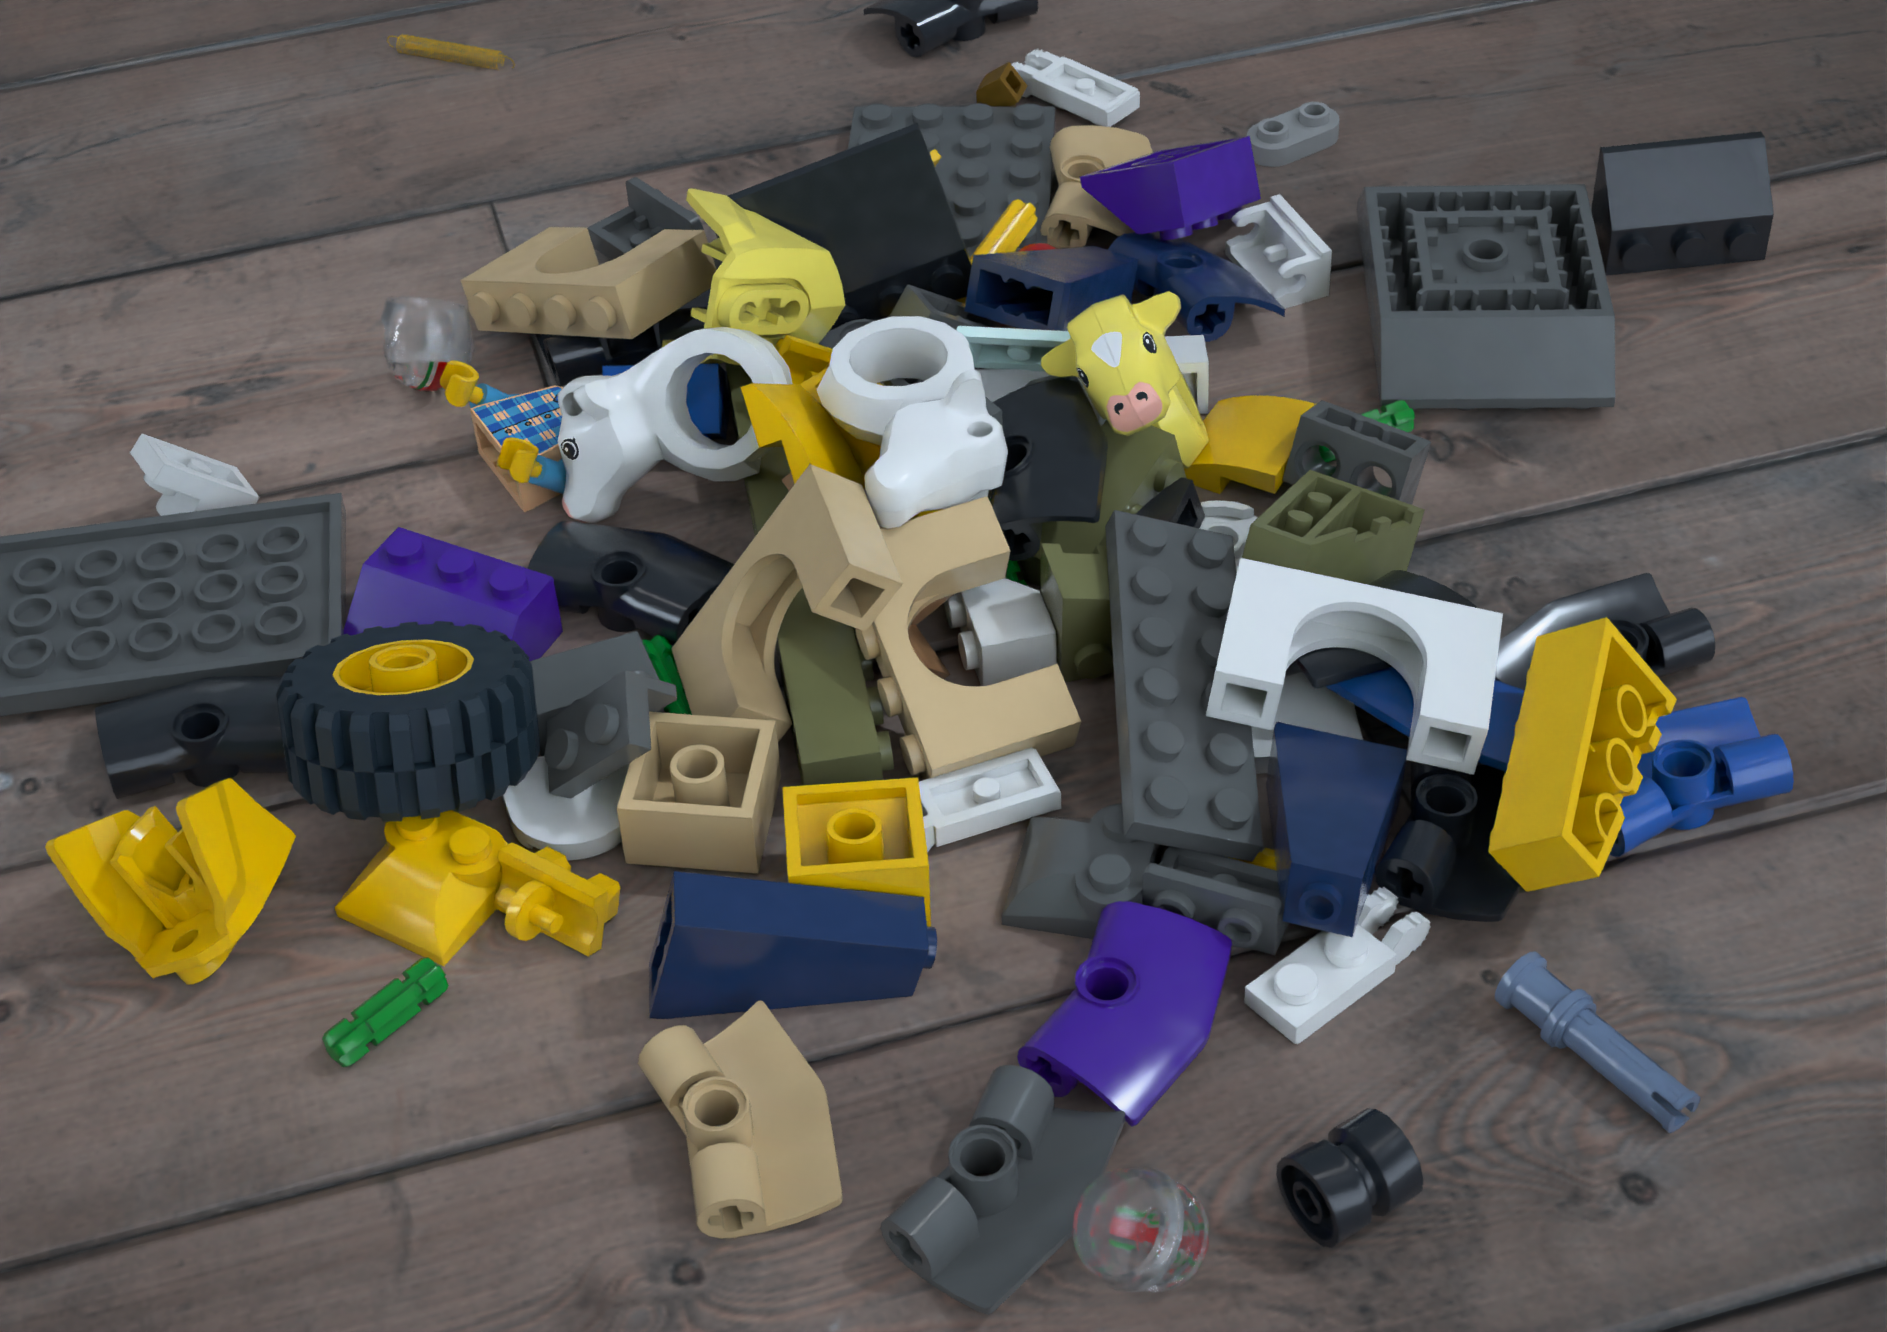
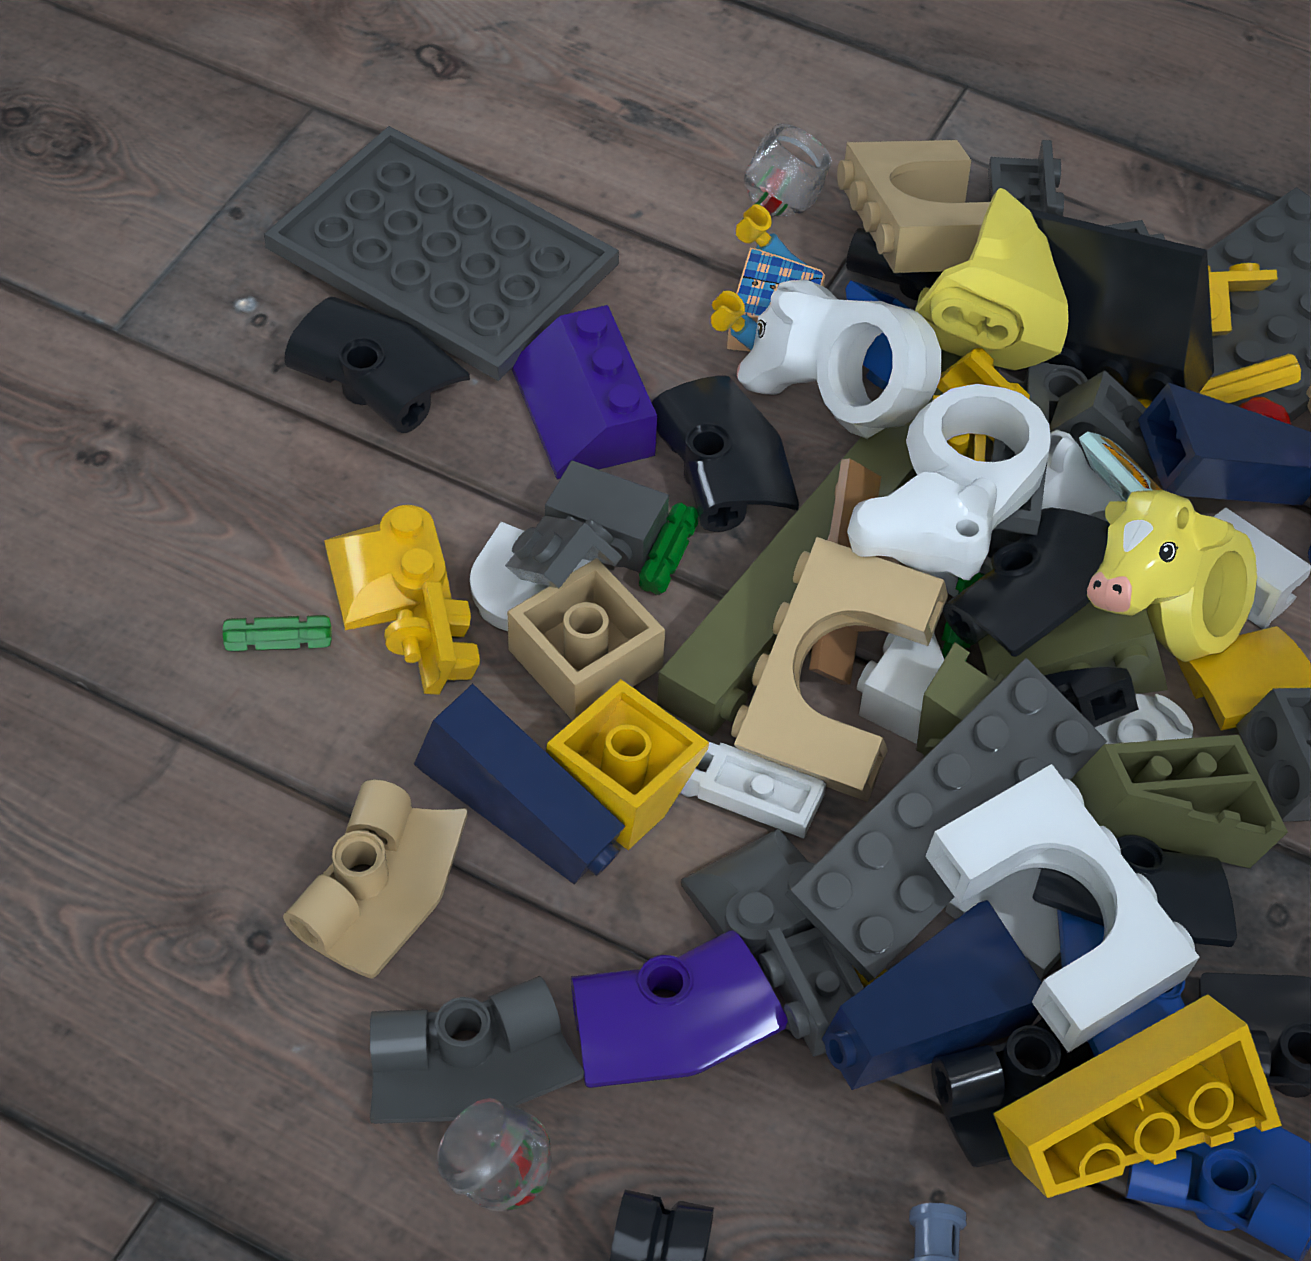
camera: 40 degrees right, 10 degrees up
(176, 894) = (243, 452): yellow piece -> none
(189, 479) = (545, 173): white slope -> none
(408, 720) = (461, 450): black wheel -> none
(795, 420) = (875, 447): yellow slope -> none
(815, 541) = (756, 545): tan arch -> none
(1334, 969) = (822, 1102): white hinge -> none

